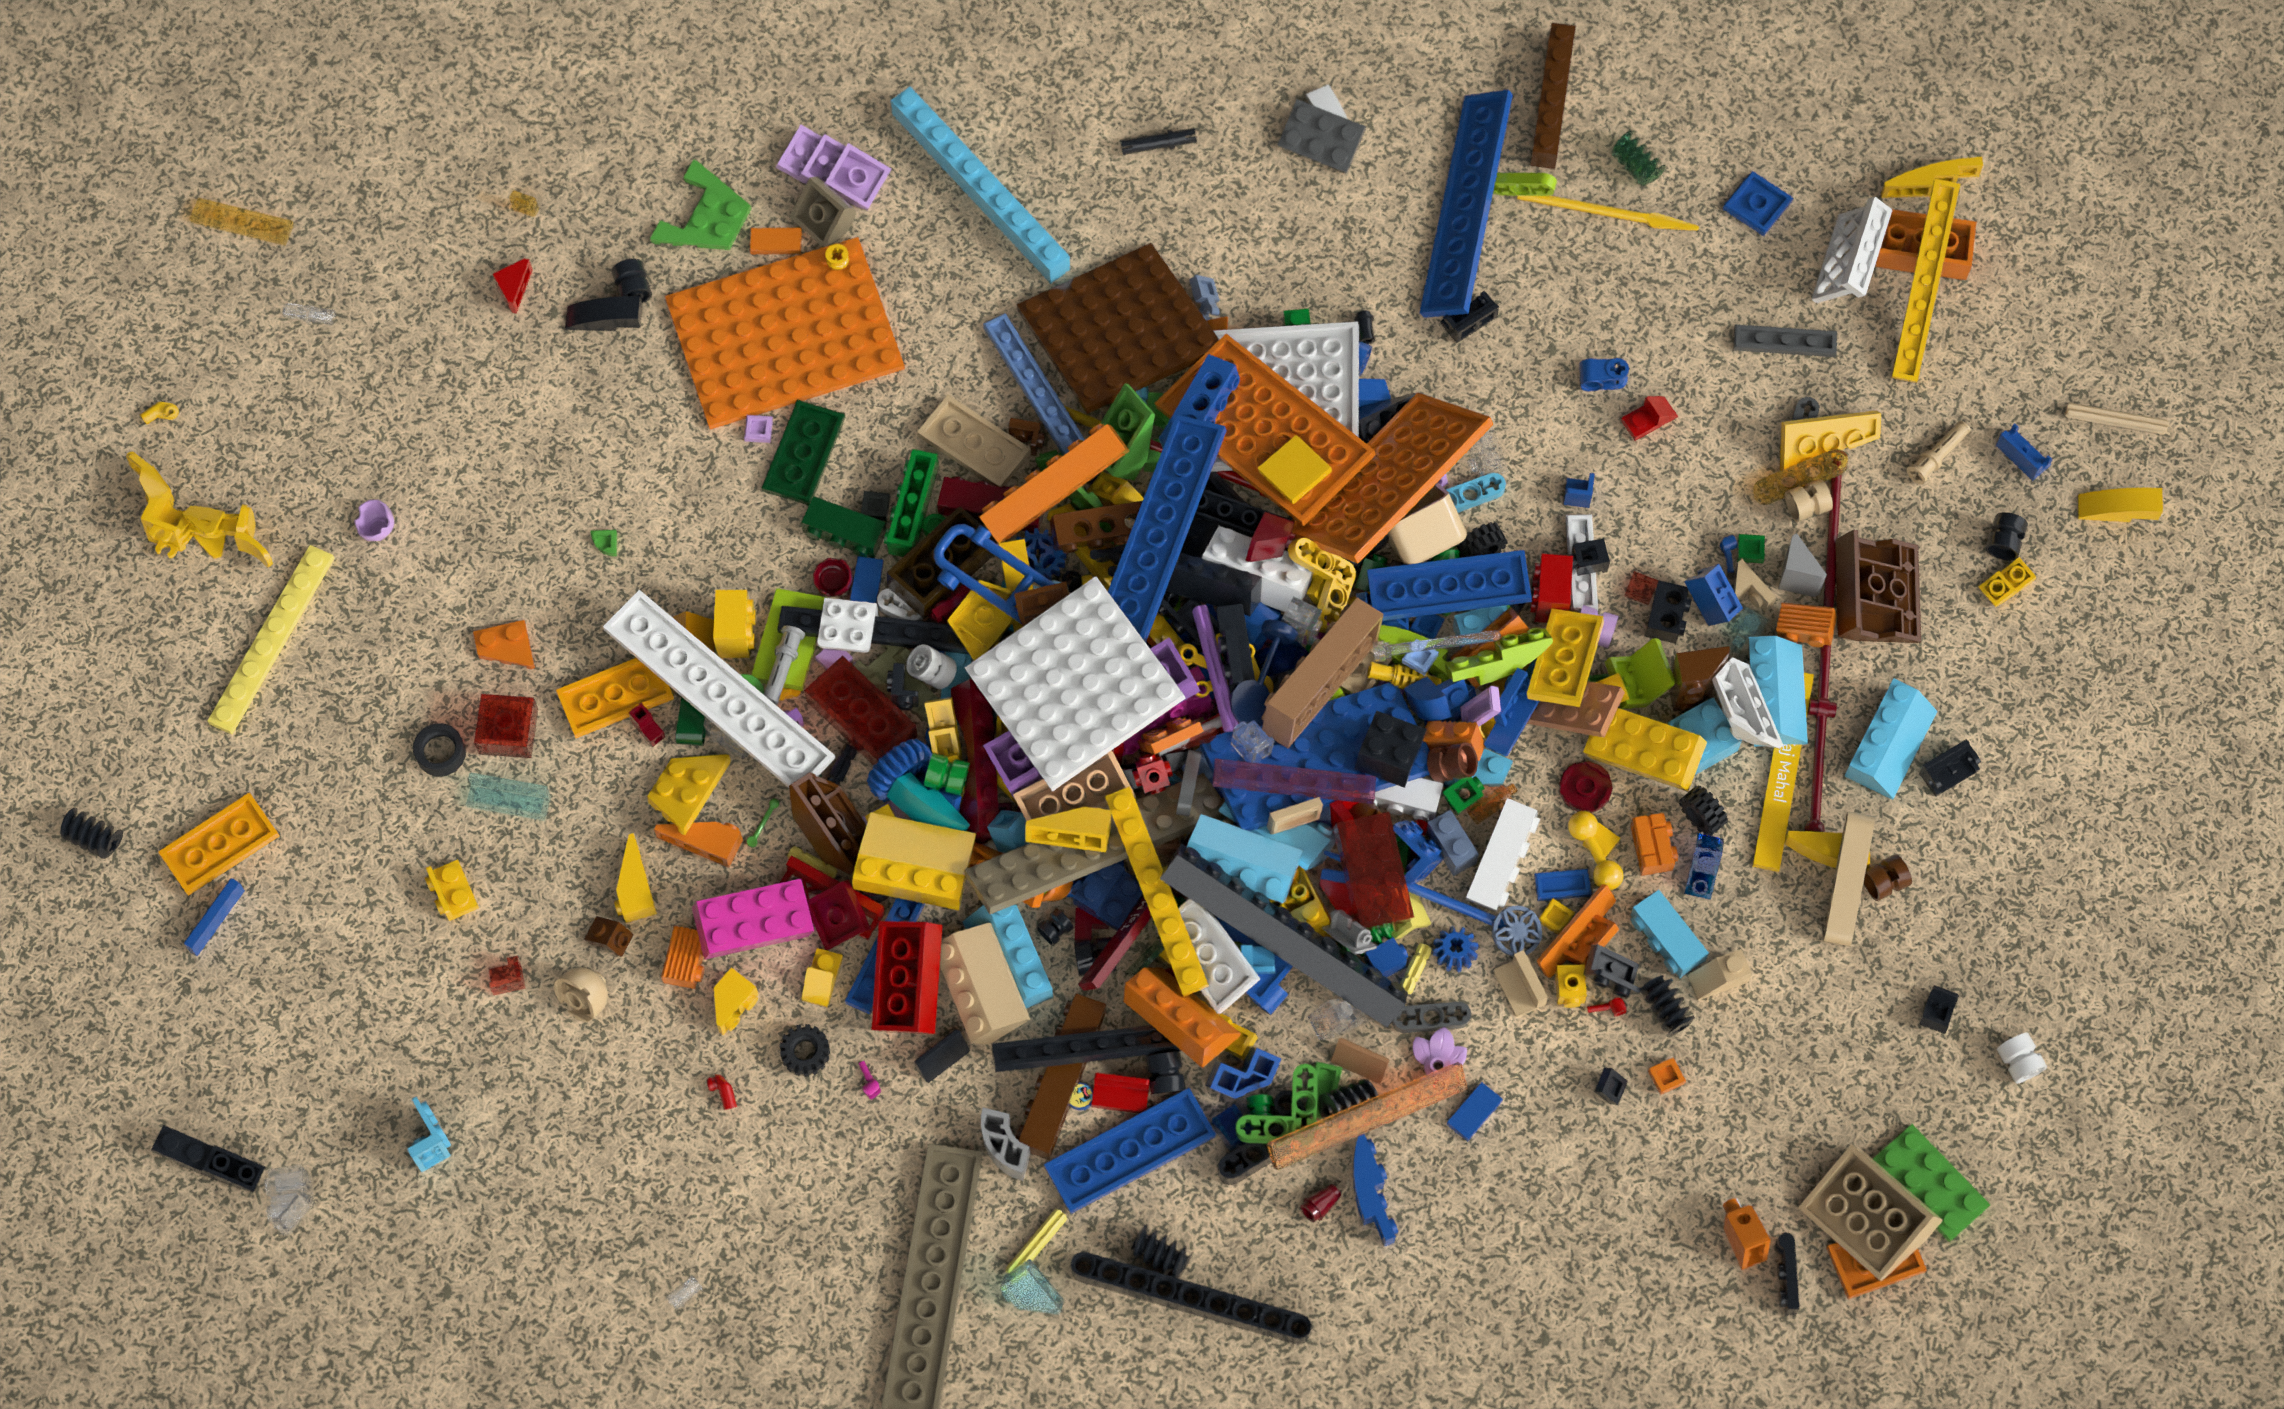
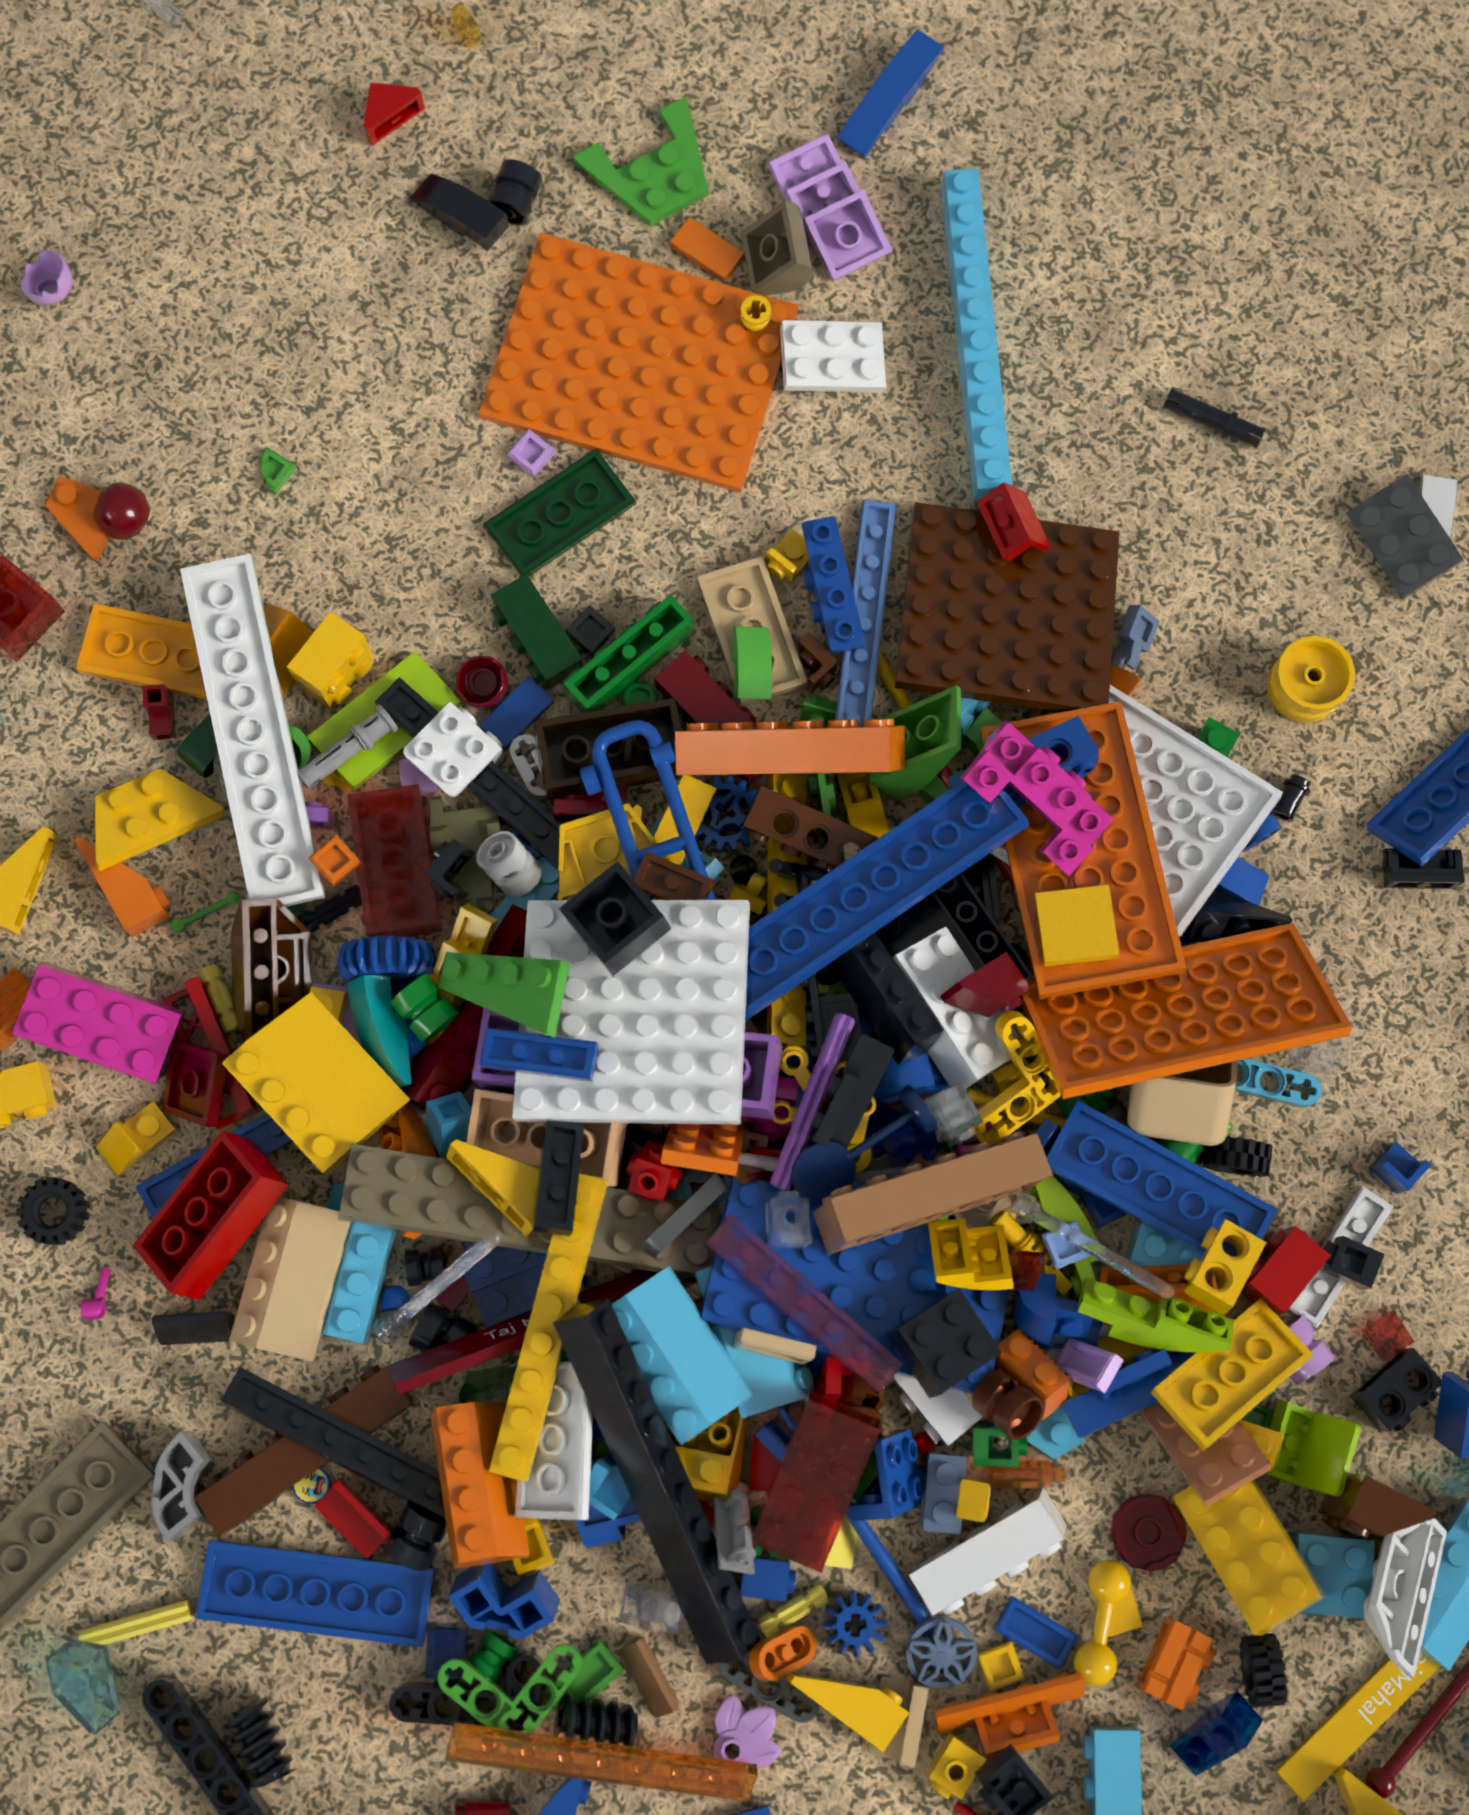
camera: 30 degrees right, 10 degrees up
(530, 625) = (121, 511): none -> dark red hair
(820, 76) = (891, 92): none -> blue slope
(827, 729) = (334, 860): none -> orange tile
(902, 252) = (832, 356): none -> white plate
(964, 385) = (787, 557): none -> yellow bracket
(991, 456) = (752, 662): none -> bright green slope
(997, 715) = (511, 986): none -> bright green wing
(1003, 384) = (831, 586): none -> blue bracket
(1028, 633) = (615, 918): none -> black brick
(1039, 740) = (539, 1054): none -> blue tile
(1051, 959) = (394, 1298): none -> blue hinge
(1060, 972) = (391, 1324): none -> clear piece
(1084, 276) = (1012, 521): none -> red panel
(1102, 800) = (558, 1177): none -> black plate
(1221, 404) = (1046, 787): none -> dark pink bracket
(1326, 252) = (1310, 679): none -> yellow wheel
(1371, 694) = (970, 1256): none -> yellow slope
(1404, 685) = (1025, 1269): none -> clear red plate
(1426, 990) = (779, 1655): none -> orange plate
(1473, 828) = (973, 1500): none -> yellow slope
(1491, 989) = (861, 1707): none -> yellow slope
(1515, 597) = (1229, 1270): none -> yellow brick

